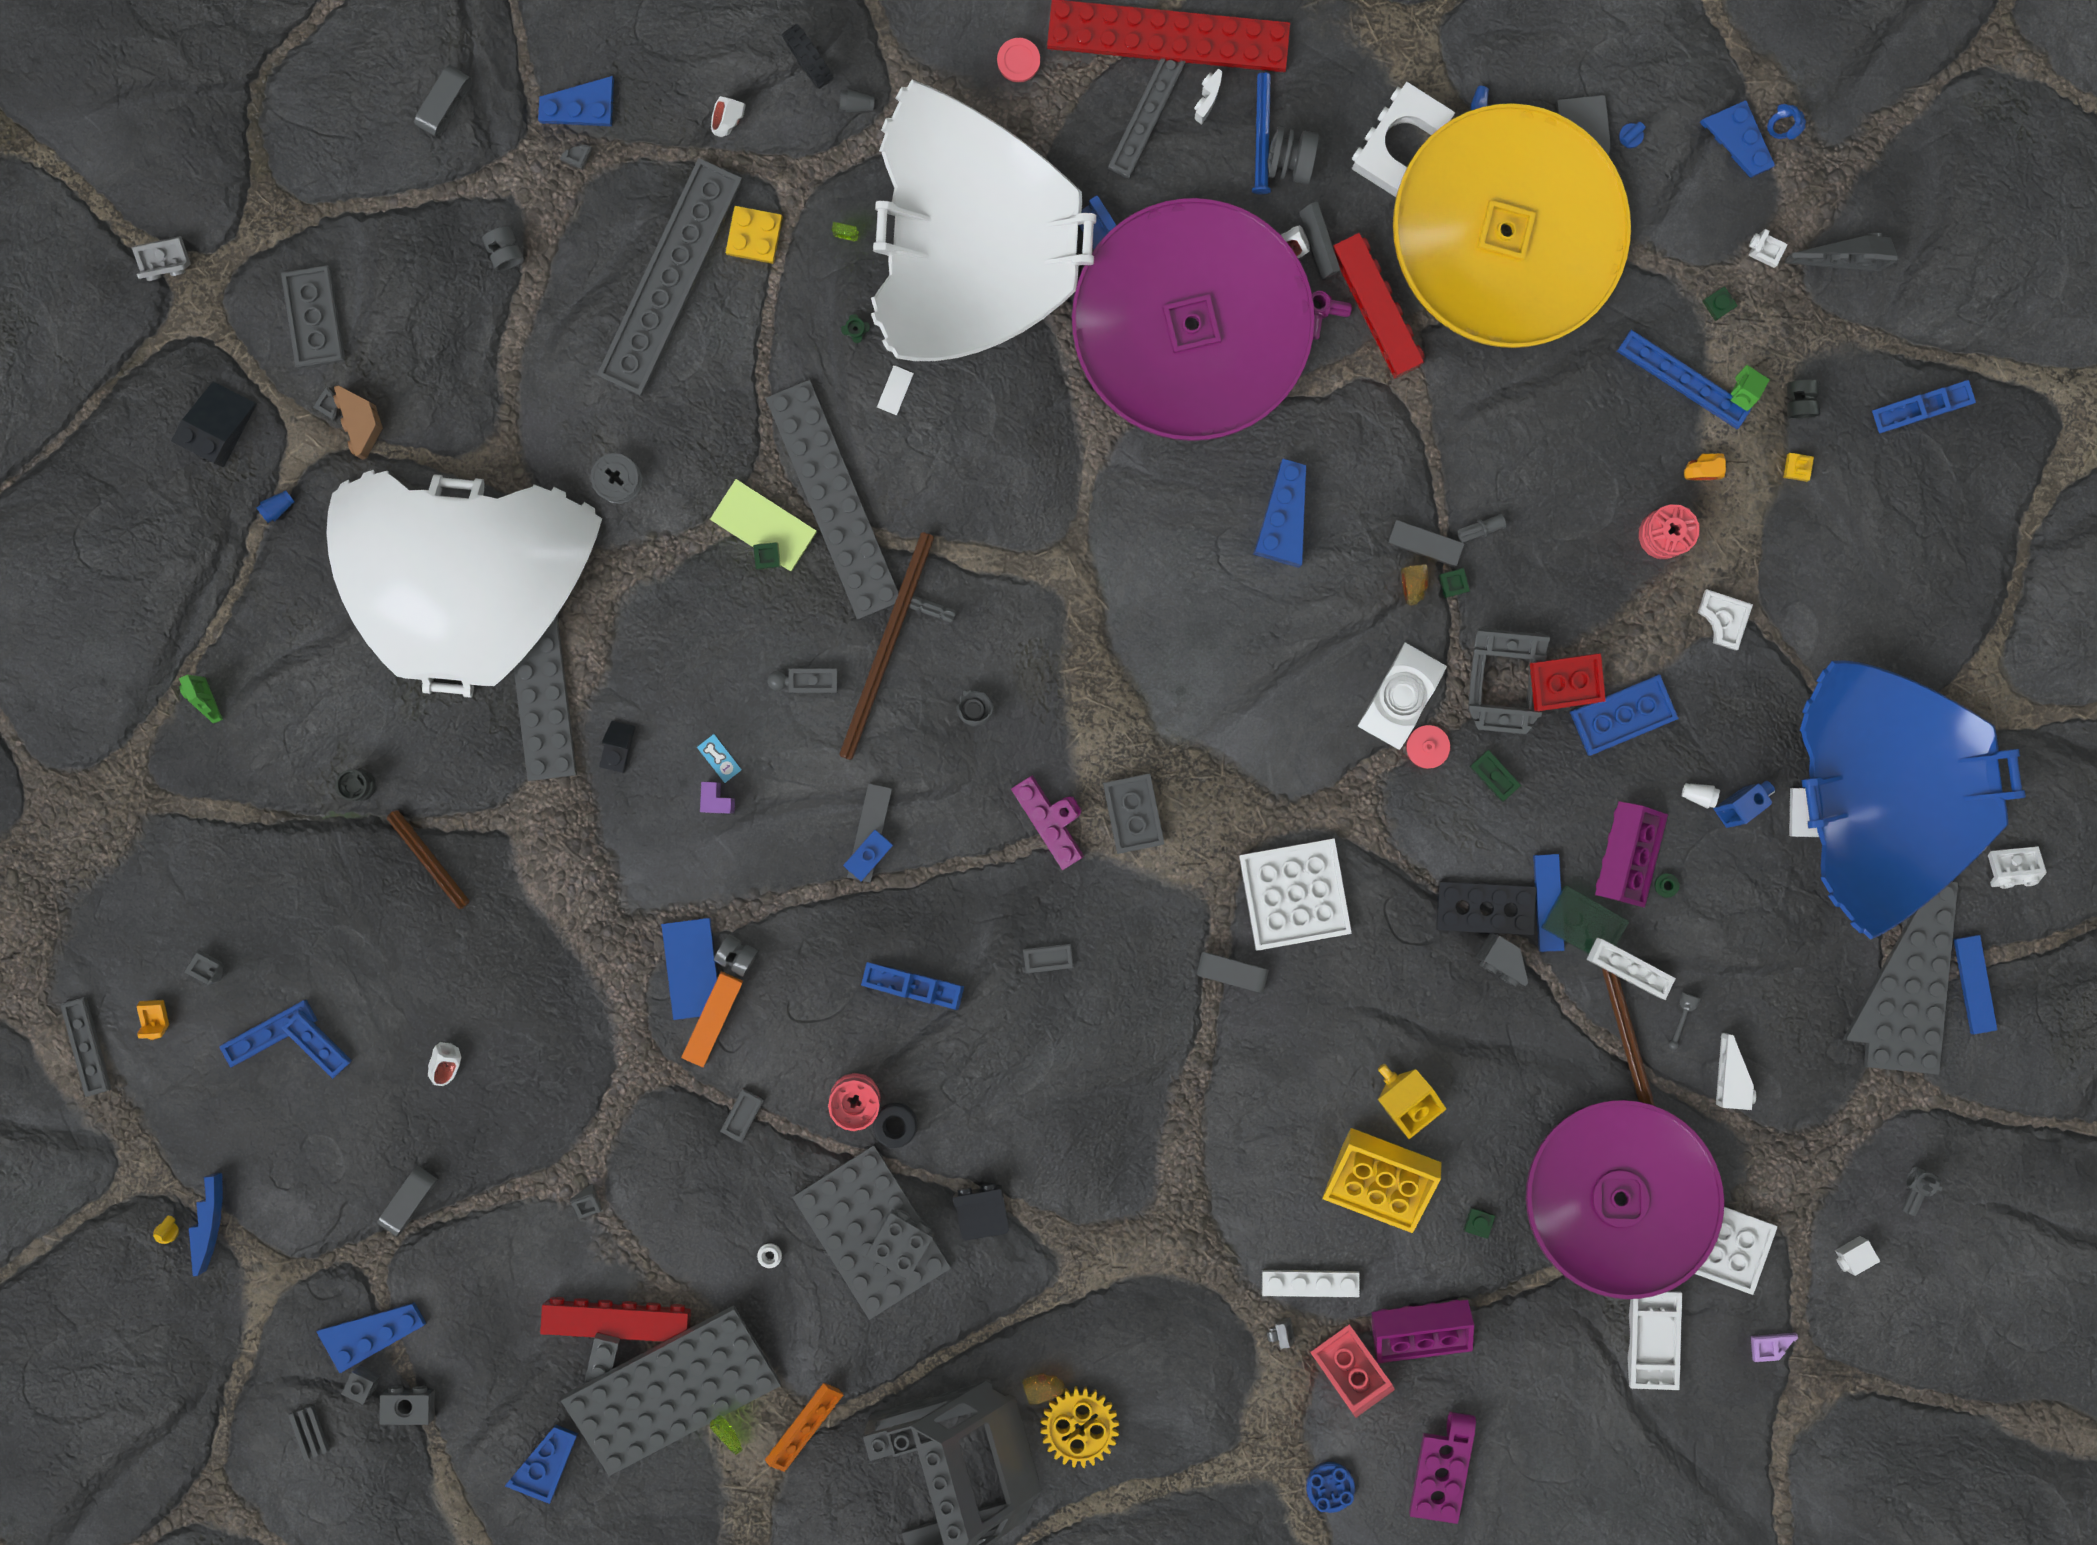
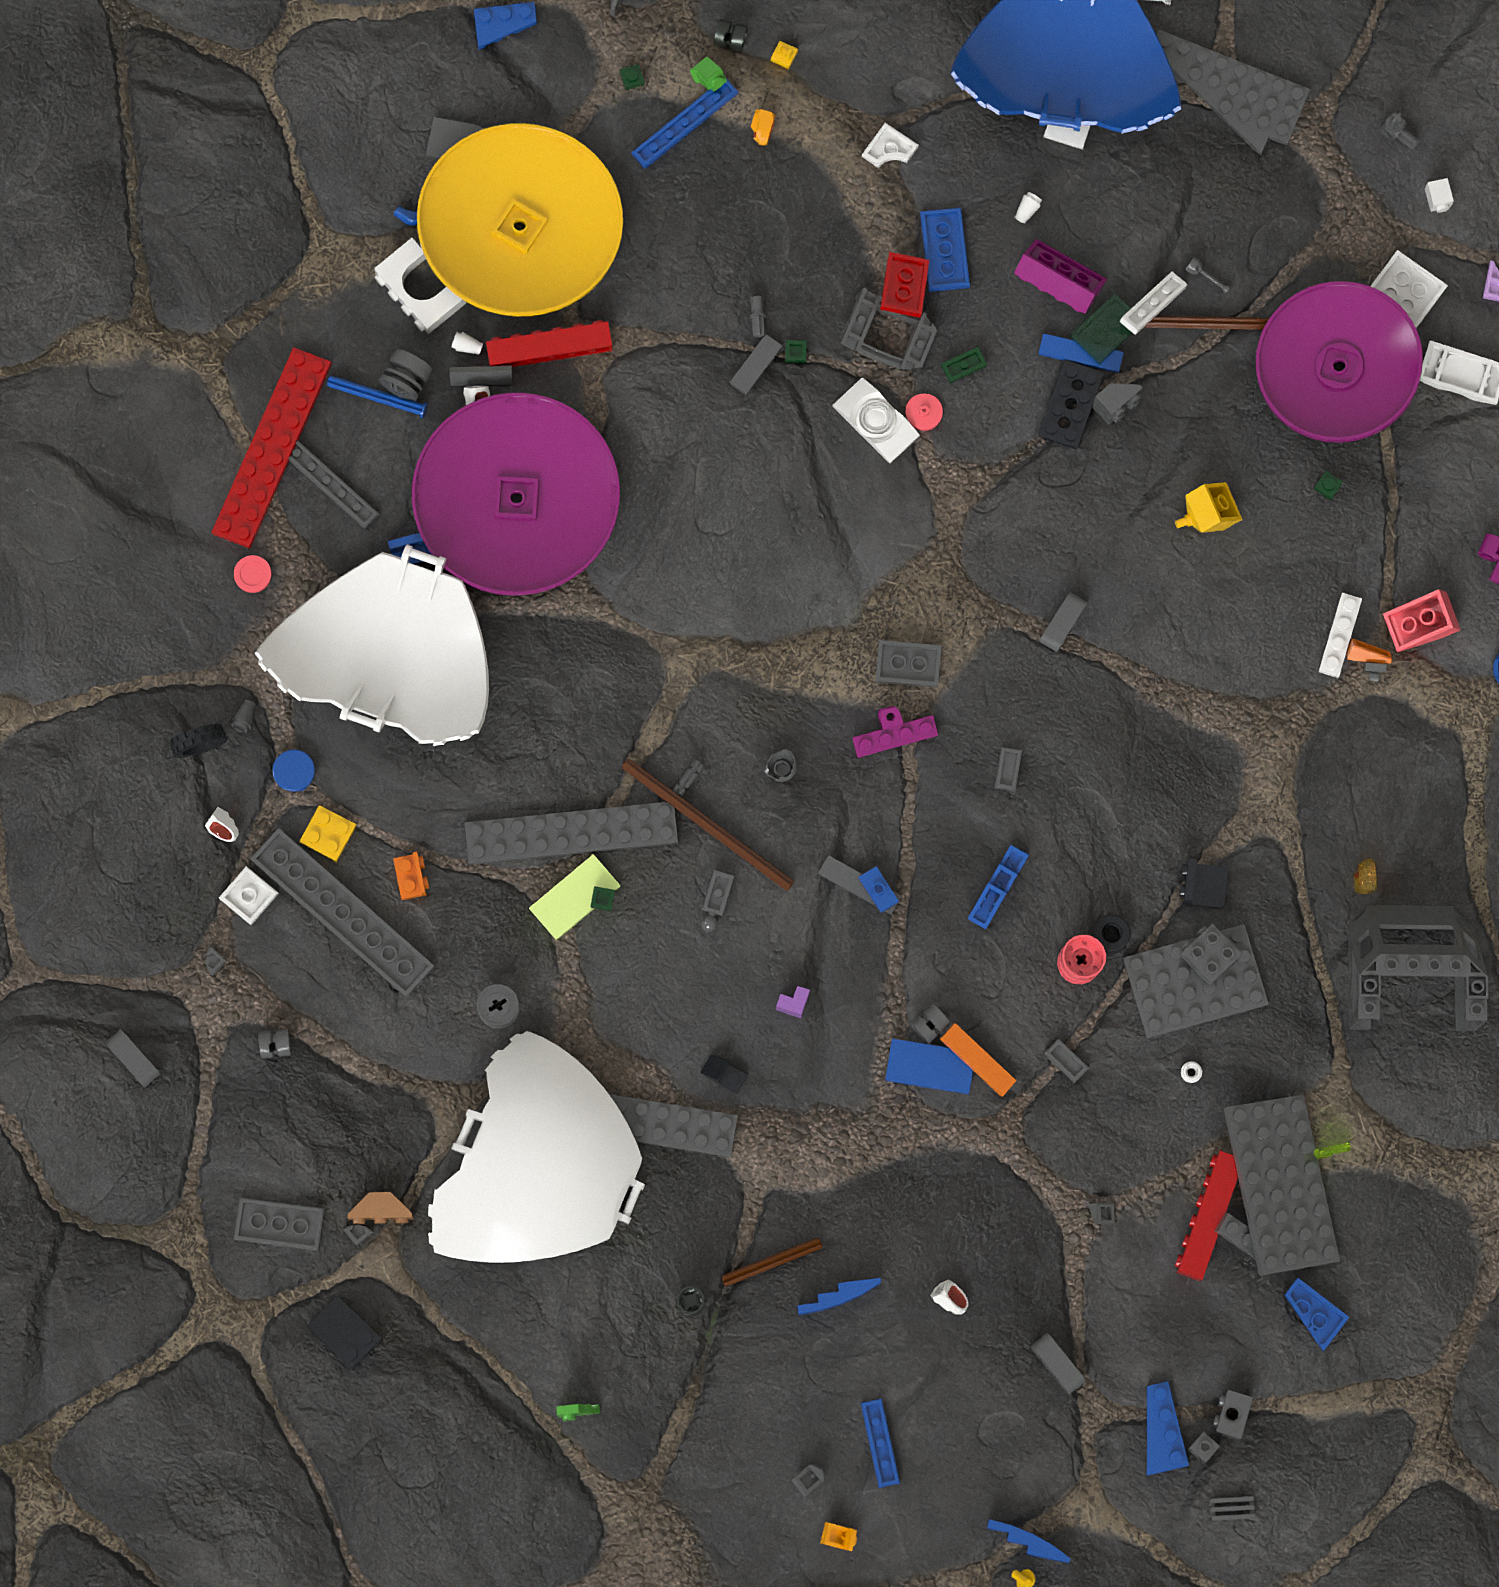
camera: 75 degrees left, 10 degrees down
(161, 258) = (189, 1337): light grey bracket -> none
(275, 506) = (431, 1303): blue cone -> none
(316, 1044) = (901, 1402): blue tile -> none
(415, 950) = (846, 1292): none -> blue slope
(579, 105) = (172, 946): blue wing -> none
(660, 170) = (248, 895): none -> white tile
(719, 758) = (759, 992): medium azure sticker -> none
(733, 339) = (410, 876): none -> orange bracket
(804, 1427) = (1343, 1084): orange plate -> none
(811, 175) = (293, 770): none -> blue tile
(845, 231) = (350, 756): clear neon green tile -> none
(853, 322) = (427, 772): dark green plate -> none
(895, 390) = (494, 756): white sticker -> none
(1093, 1443) = (1388, 862): yellow gear -> none
(1210, 92) = (330, 426): white slope -> none
(1283, 521) = (700, 470): blue wedge -> none
(1295, 894) = (1014, 553): white plate -> none
(1297, 1318) = (1365, 652): none -> orange slope
(1327, 307) = (537, 384): magenta axle -> none
(1351, 213) = (467, 344): none -> white cone
(1382, 1180) = (1271, 551): yellow slope -> none
(1414, 583) = (786, 383): clear yellow rock -> none
(1422, 1331) = (1404, 555): magenta slope -> none
(1632, 134) = (472, 105): blue plate -> none
(1655, 535) = (805, 181): coral wheel -> none
(1659, 885) = (1091, 261): dark green plate -> none
(1734, 1081) = (1268, 249): white slope -> none
(1745, 804) = (1046, 175): blue torso -> none
(1766, 248) = (599, 27): white bracket -> none
(1975, 984) = (1245, 40): blue tile -> none

